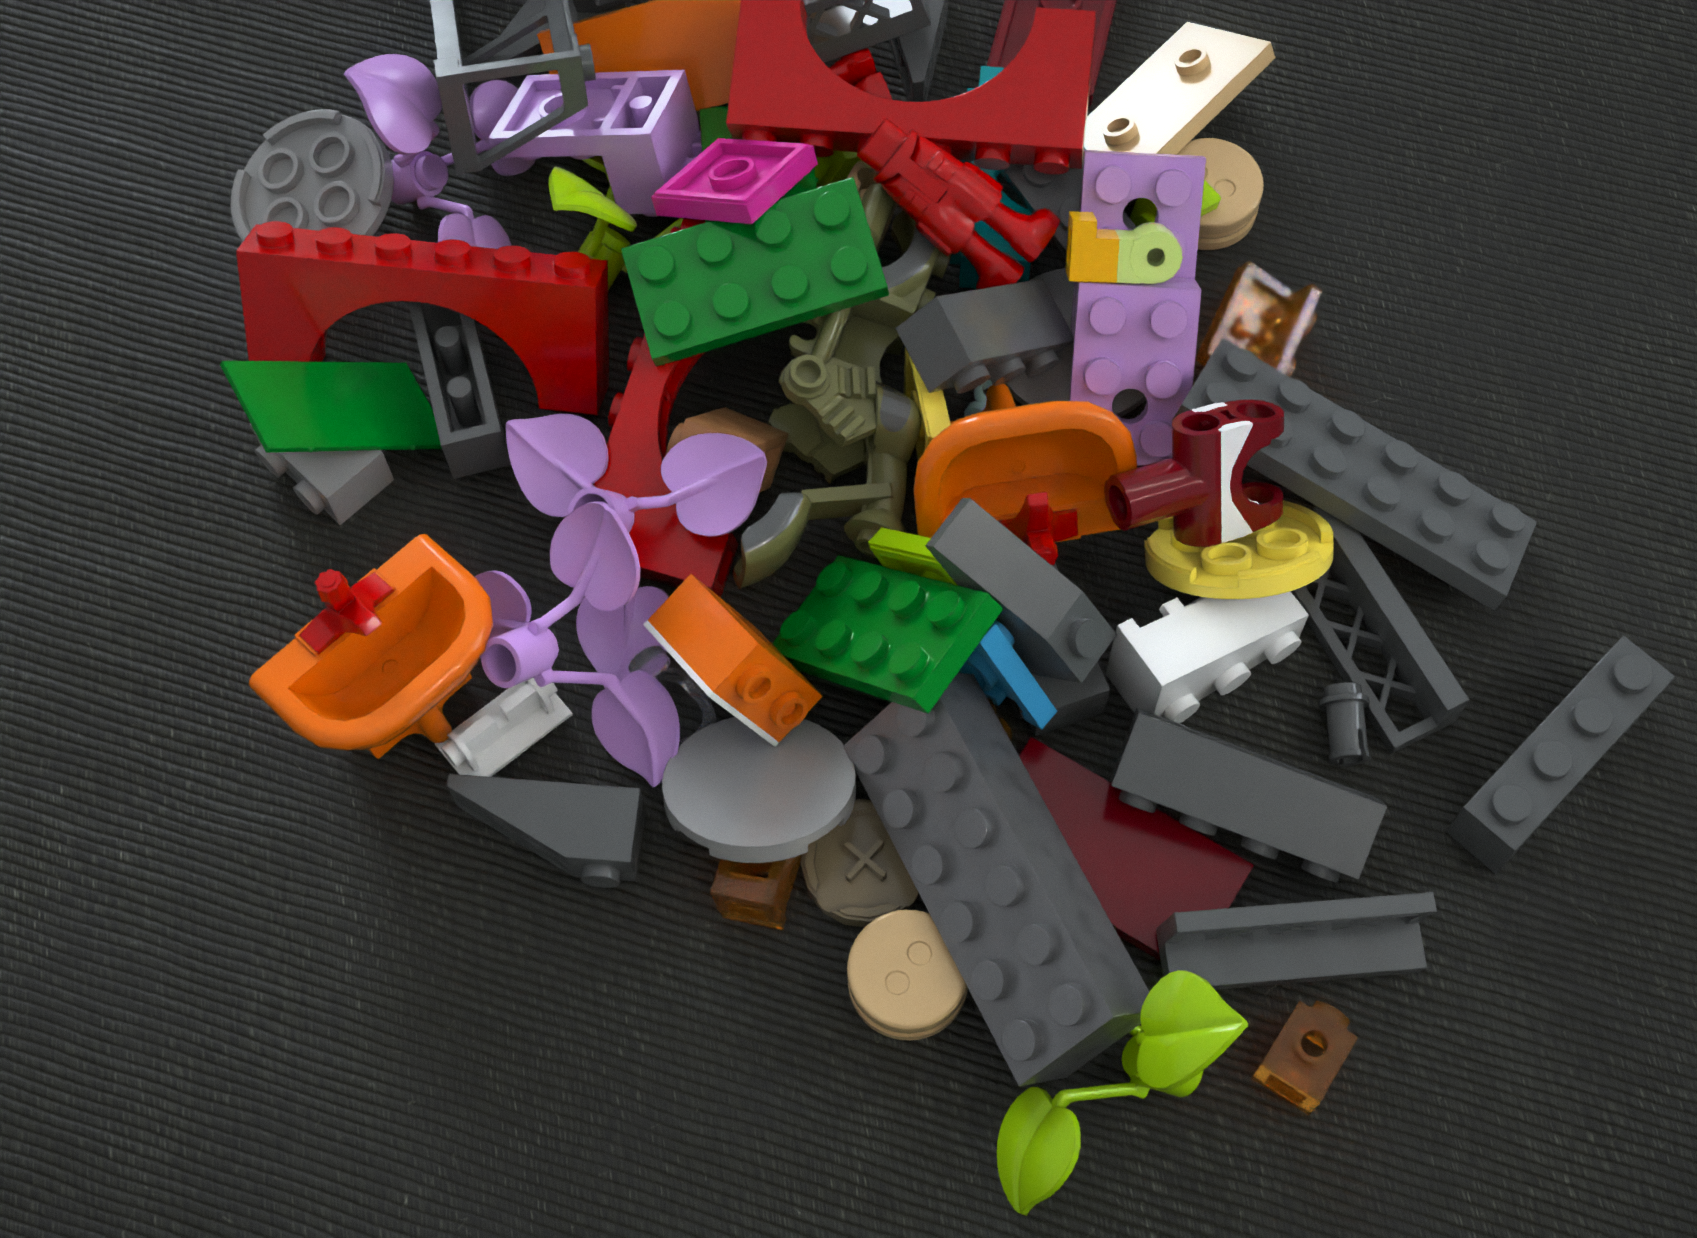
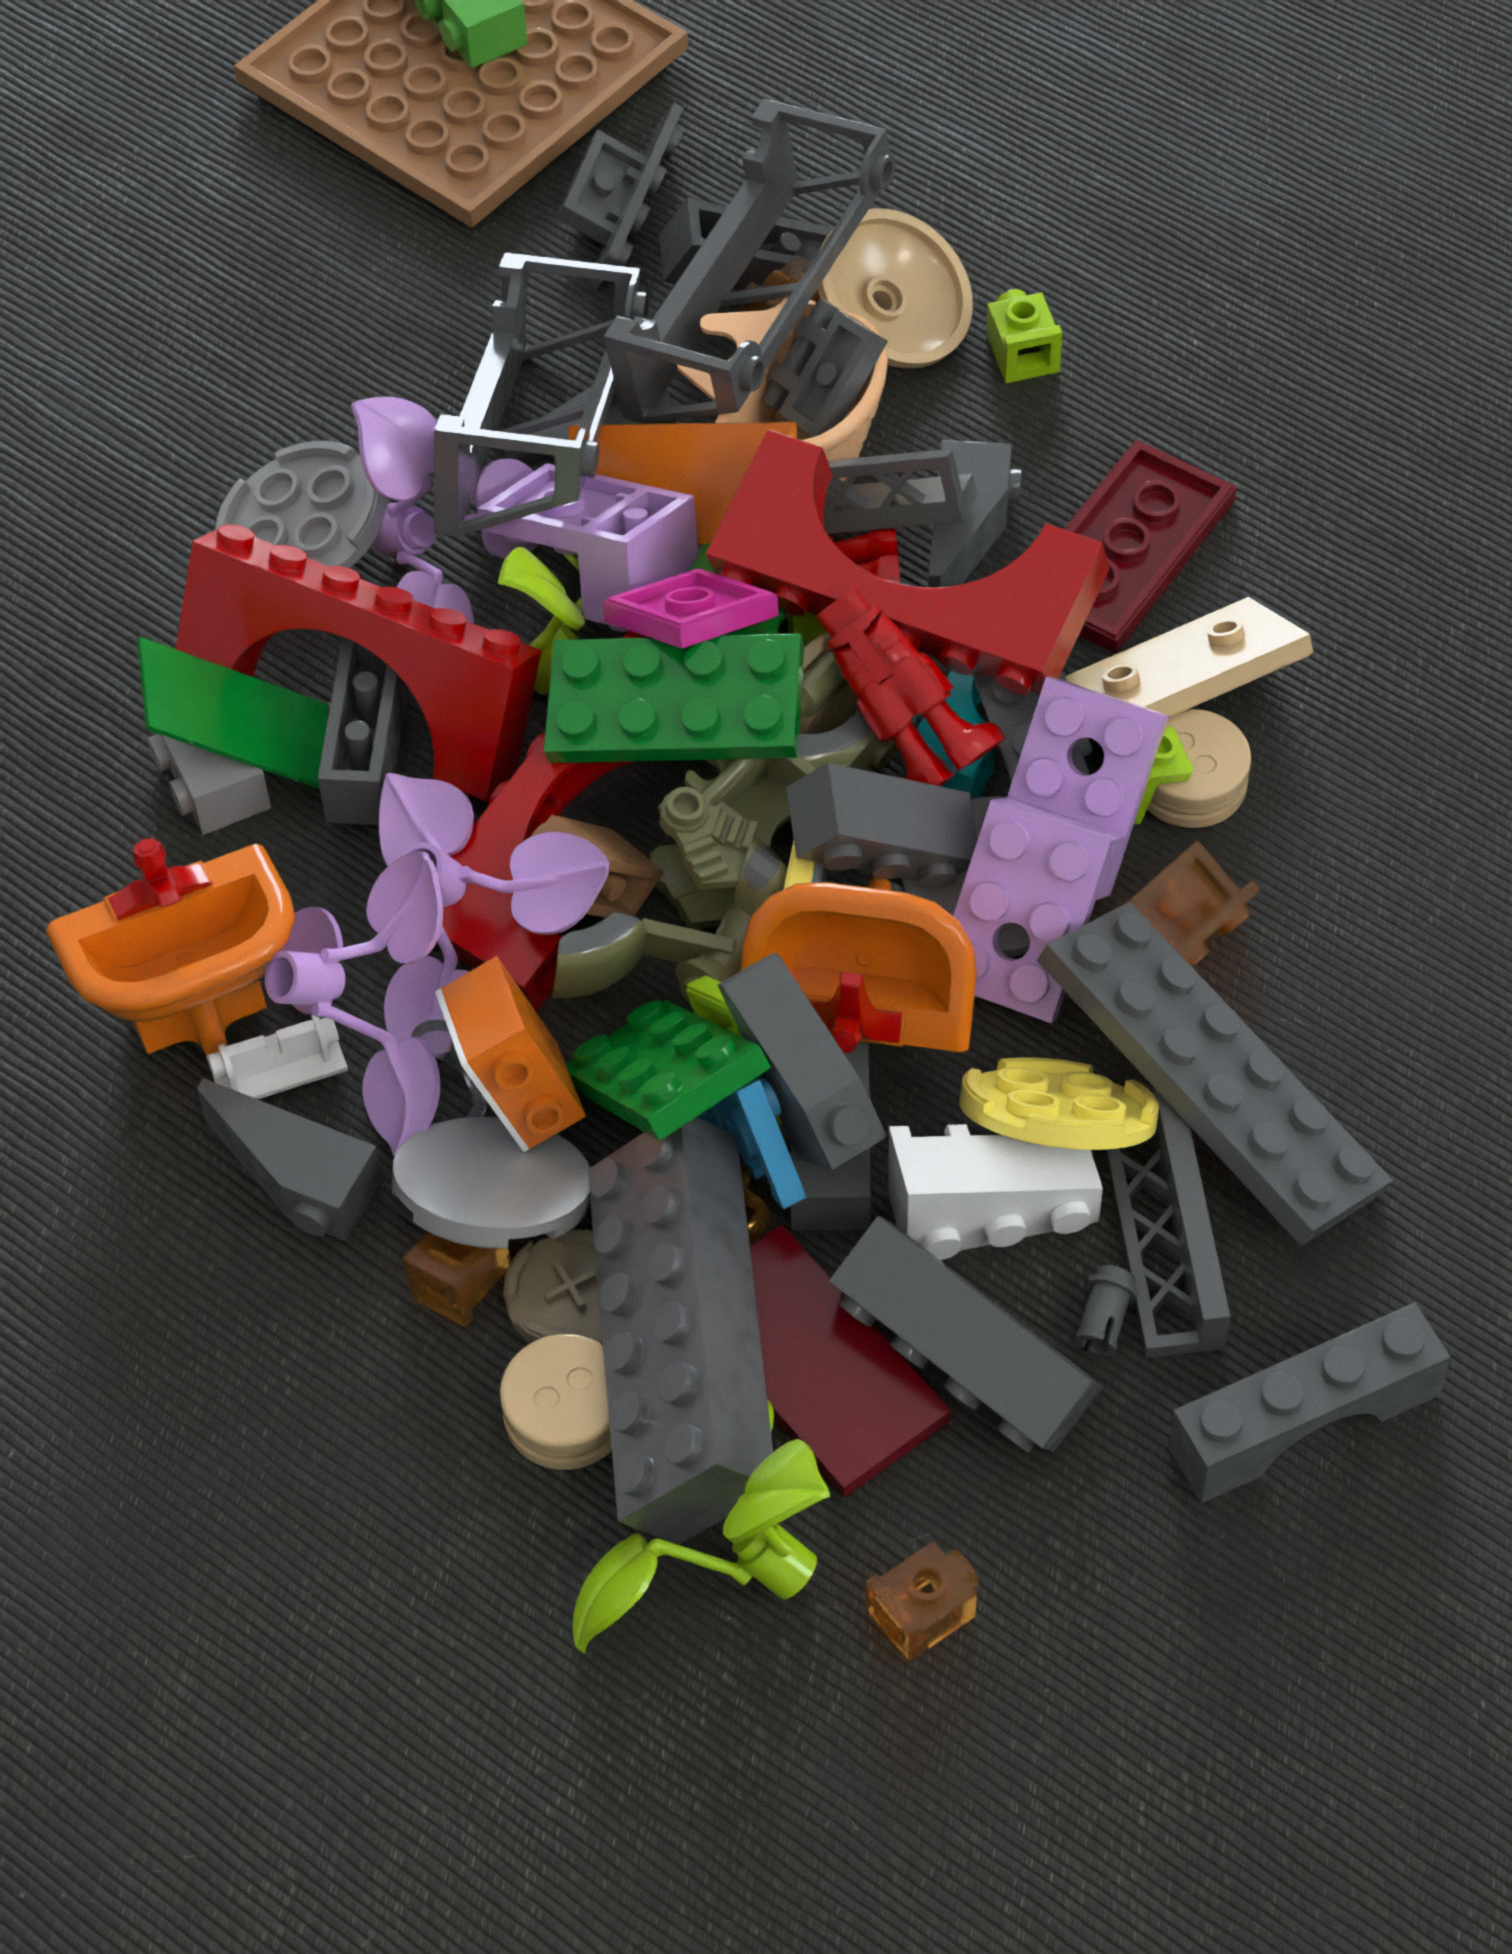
camera: 20 degrees right, 10 degrees down
(1120, 256) = (1045, 786): leg -> none
(1204, 476) = (1035, 1017): dark red connector -> none
(1298, 941) = (958, 1487): dark grey fence -> none

